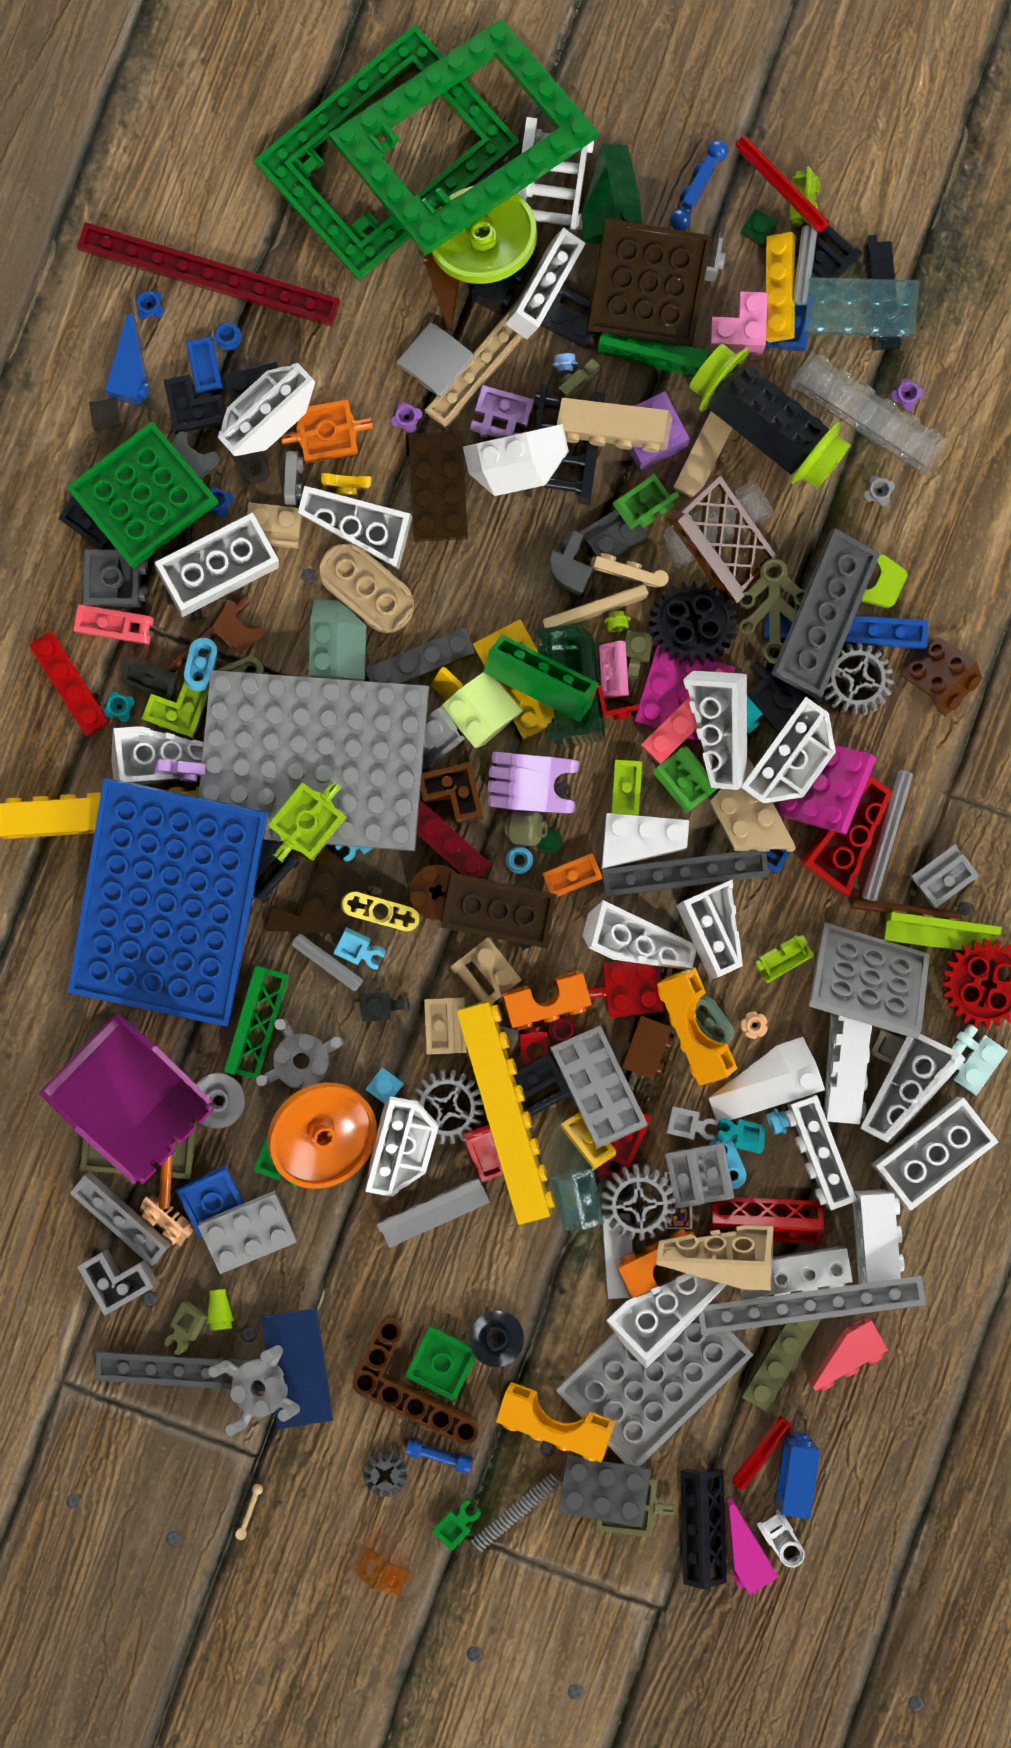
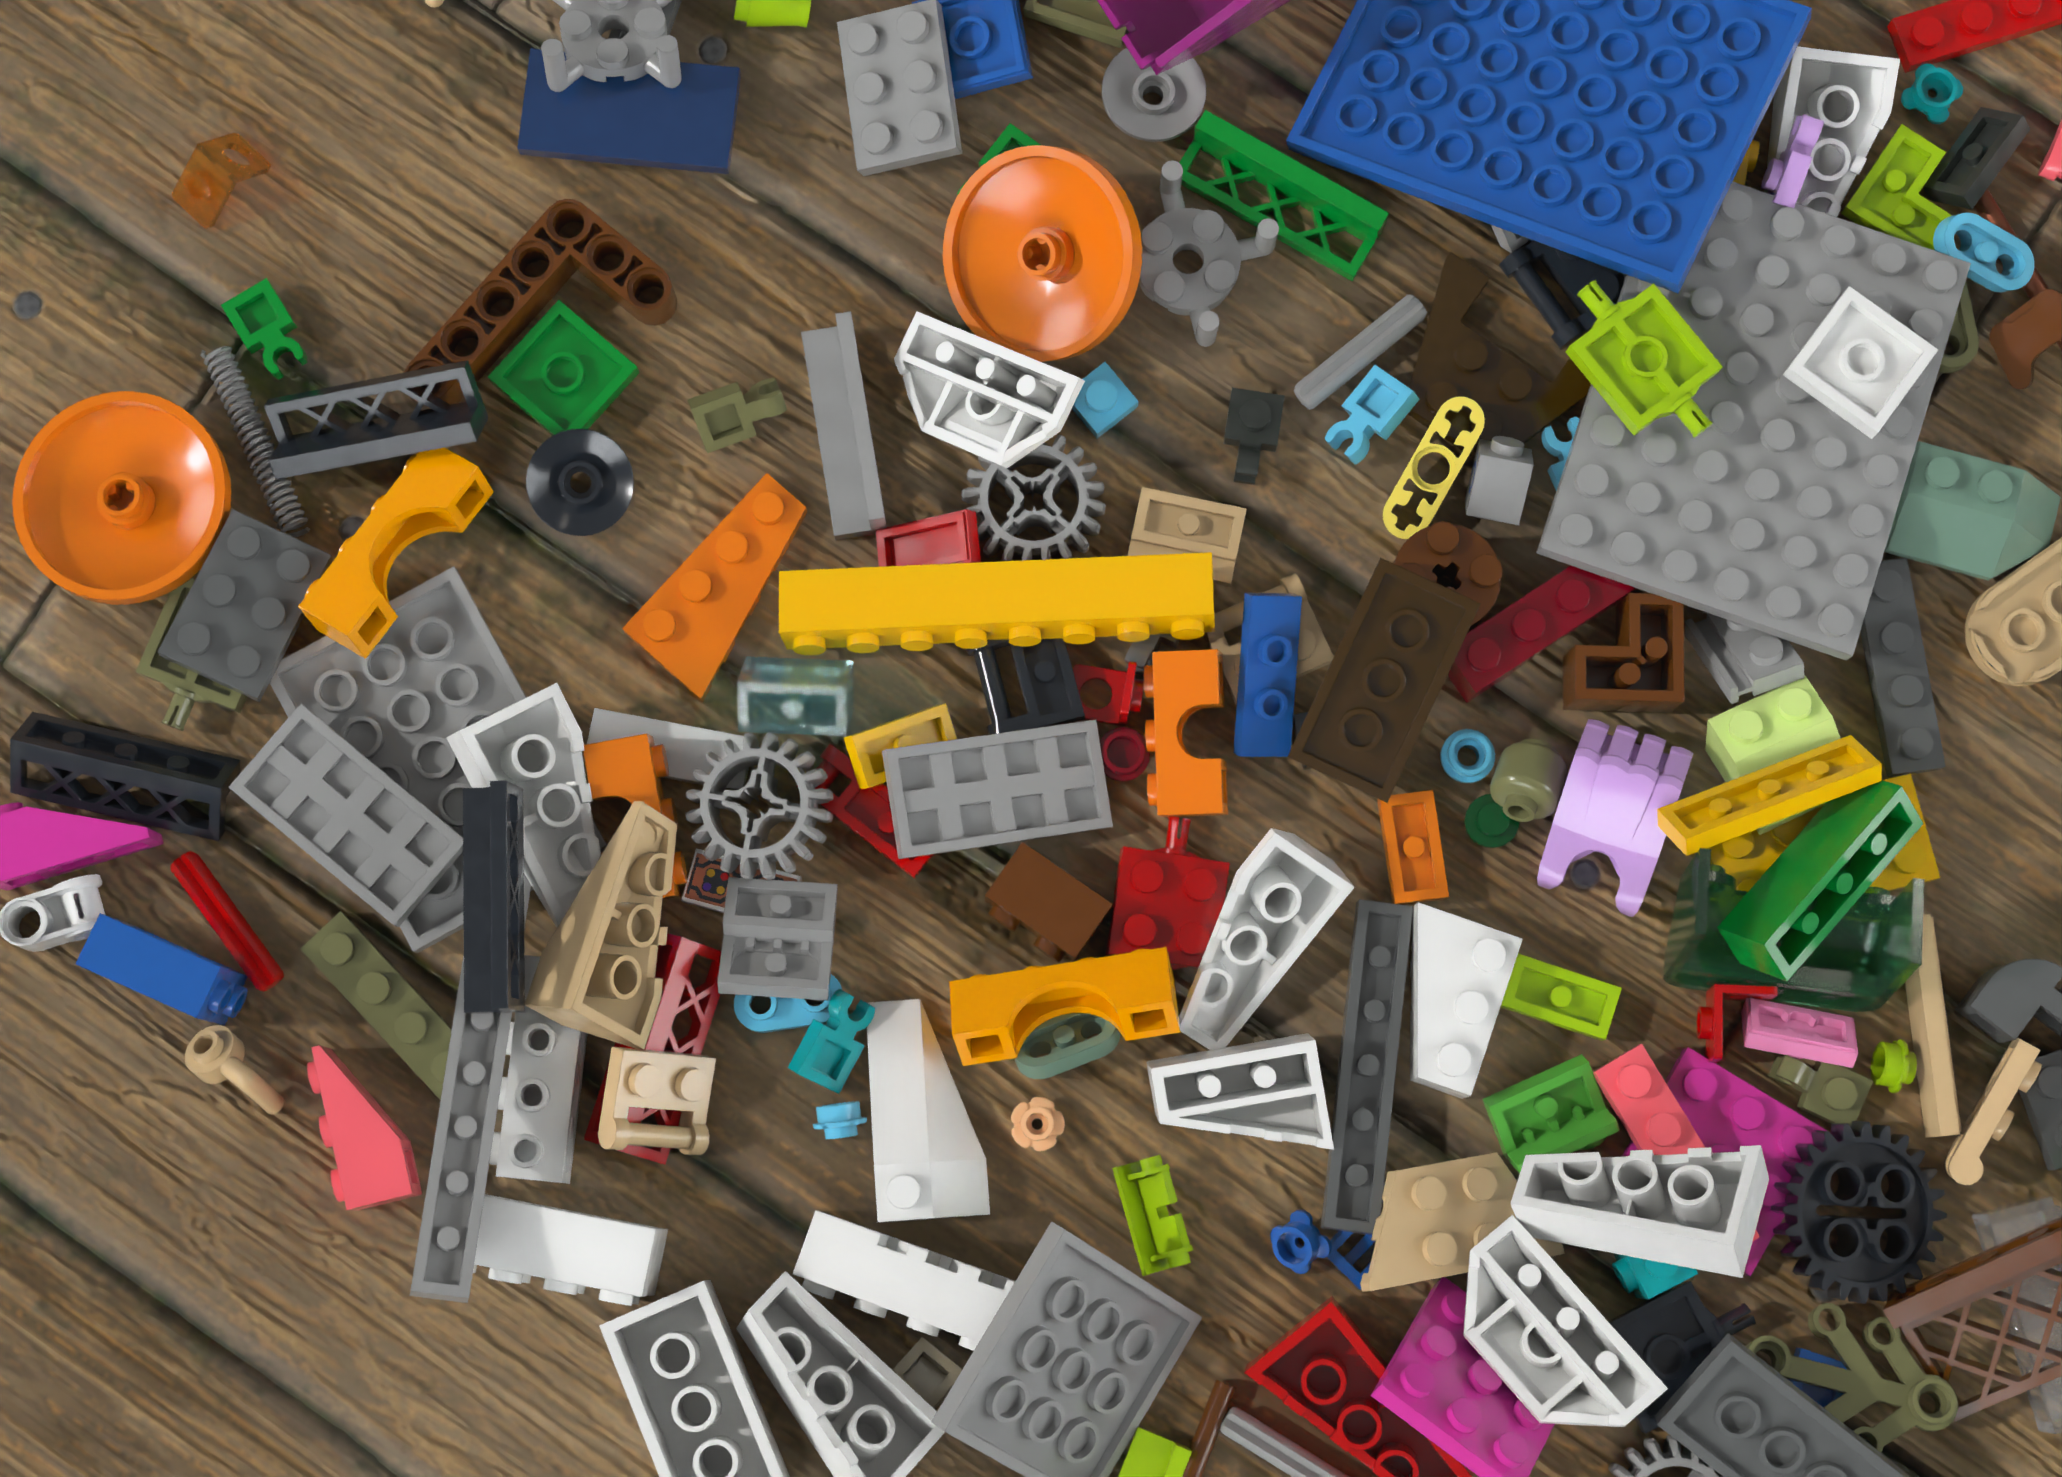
camera: 100 degrees right, 5 degrees down
(280, 714) = (1860, 362): none -> white plate
(378, 877) = (1499, 480): none -> light grey brick
(383, 1461) = (384, 247): dark grey gear -> none
(442, 1271) = (727, 415): none -> olive plate
(446, 683) = (1848, 700): yellow slope -> none
(462, 1462) = (423, 290): blue bar -> none
(499, 1447) = (377, 438): none -> black fence
(506, 968) = (1267, 674): none -> blue plate
(509, 711) = (1769, 795): none -> yellow plate
(536, 1256) = (707, 600): none -> orange wing
(565, 1571) = (121, 497): none -> orange dish
(685, 1123) = (884, 941): light grey plate -> none
(696, 1406) = (349, 815): none -> light grey plate
(725, 1319) = (493, 899): none -> black fence
(777, 884) = (1288, 1248): none -> blue plate
(786, 1215) = (657, 1082): none -> tan plate
(821, 1151) = (759, 1184): white brick -> none
(832, 1432) = (218, 1056): none -> tan plate

